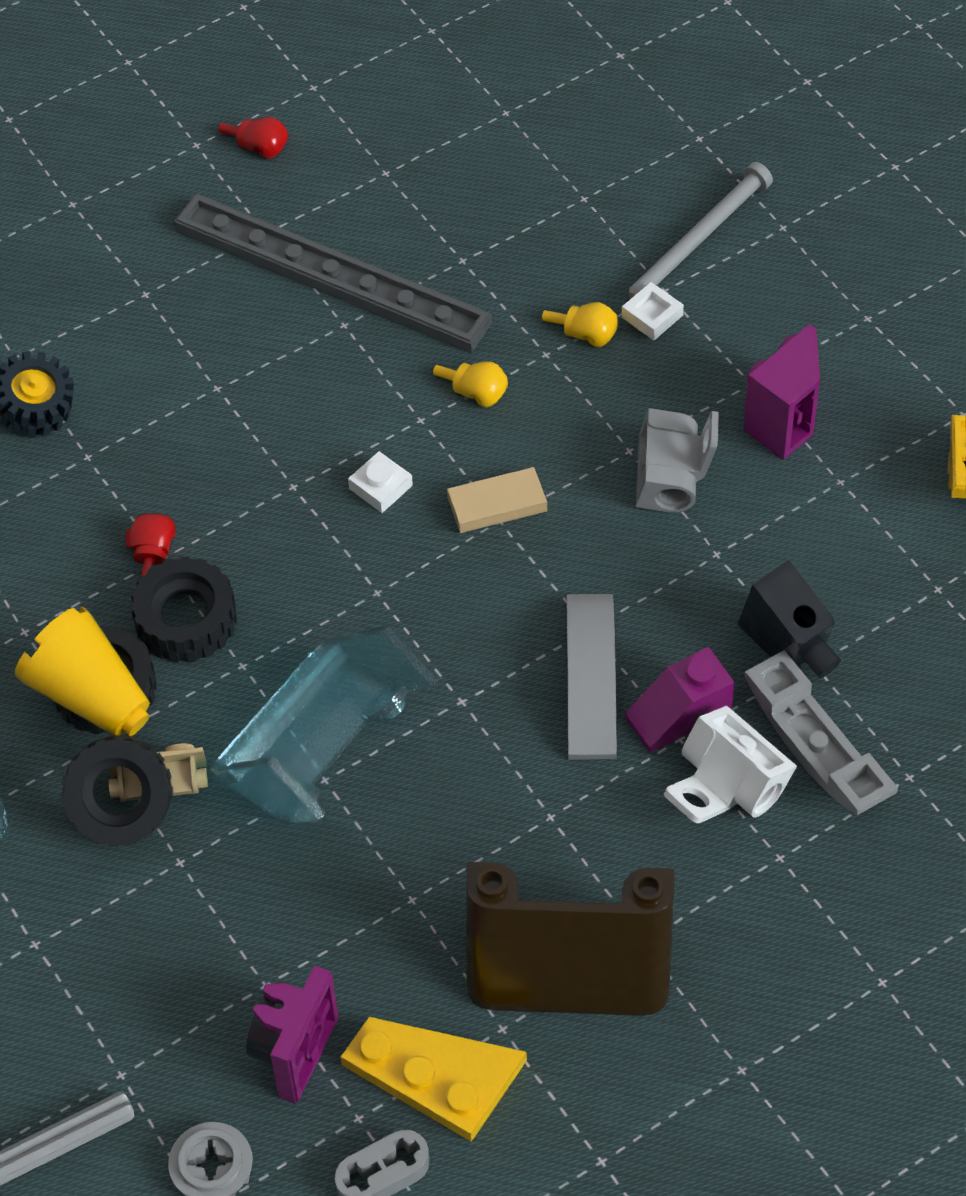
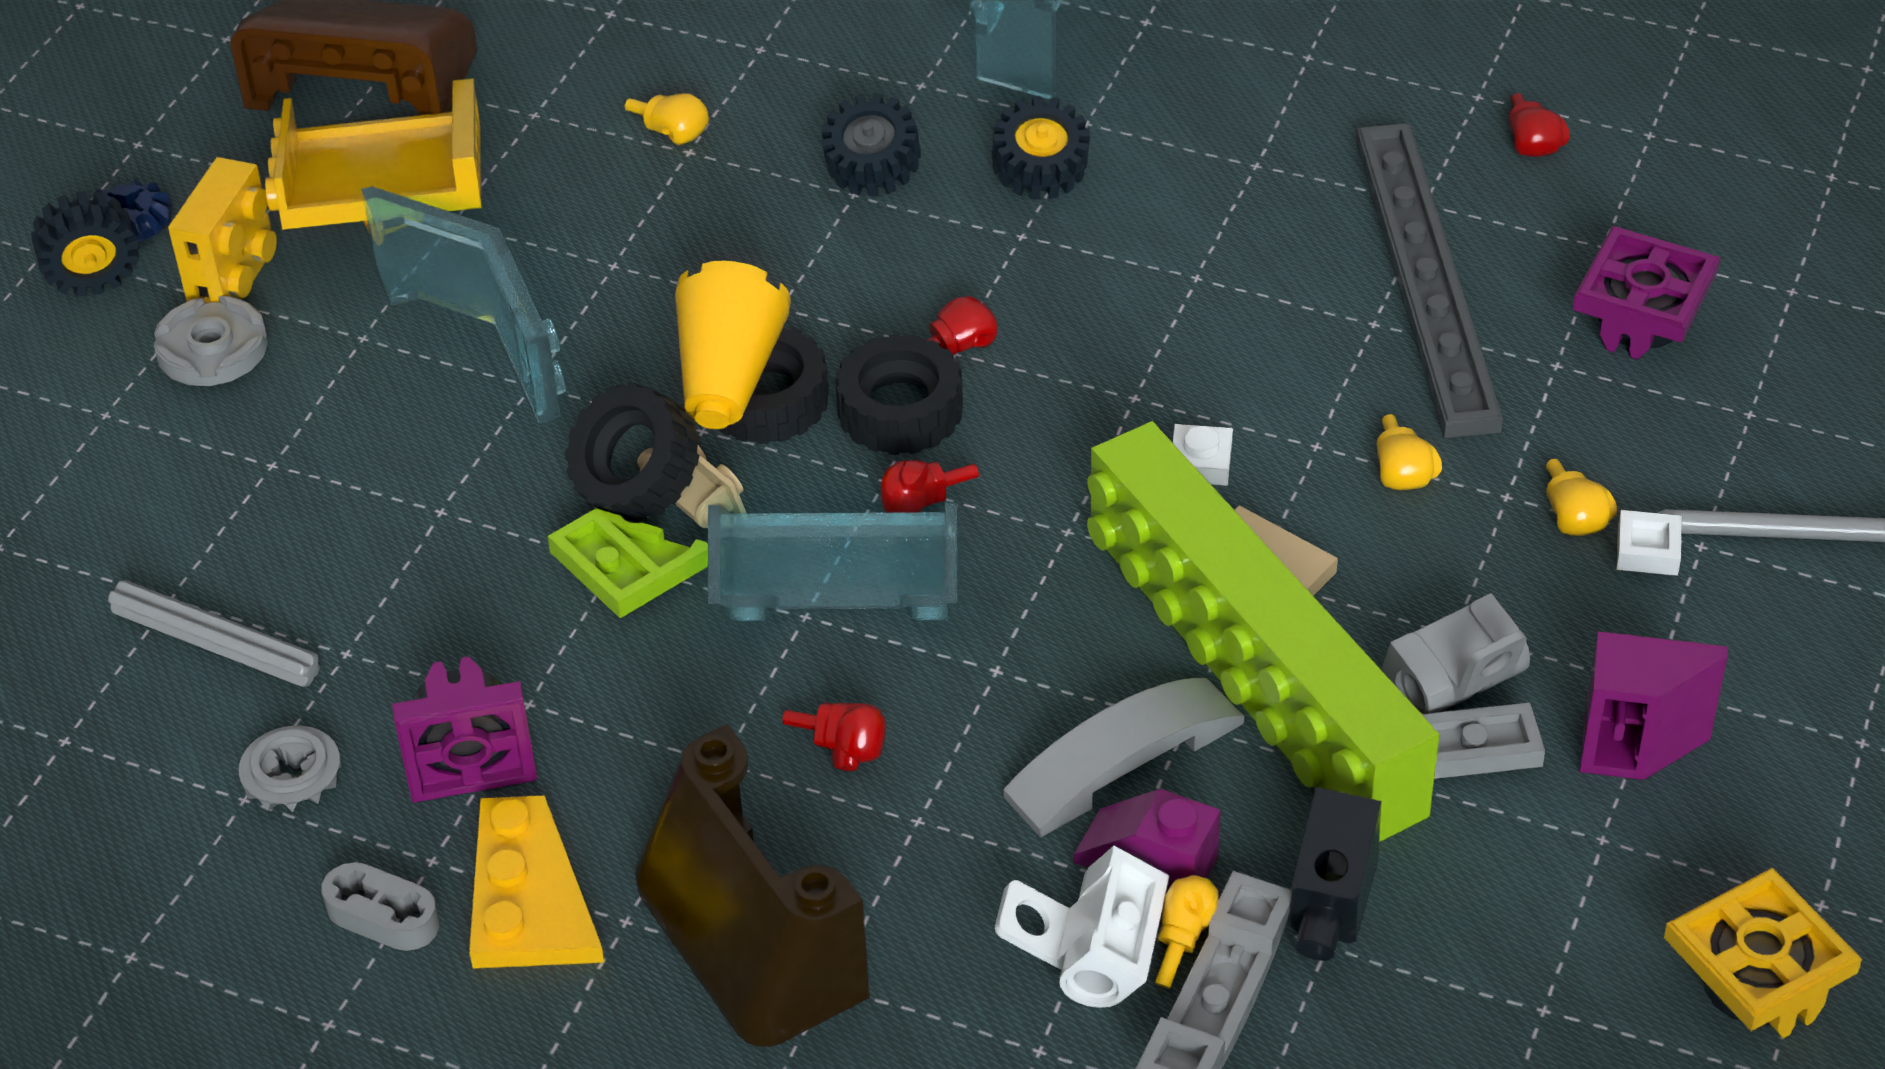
camera: 55 degrees right, 10 degrees down
(193, 854) = (624, 560): none -> lime wing
(276, 649) = (917, 484): none -> red piece
(457, 809) = (849, 729): none -> red piece
(462, 175) = (1647, 290): none -> magenta piece
(573, 540) = (1259, 629): none -> lime brick
(731, 493) = (1487, 740): none -> light grey plate
(755, 708) = (1184, 915): none -> yellow piece

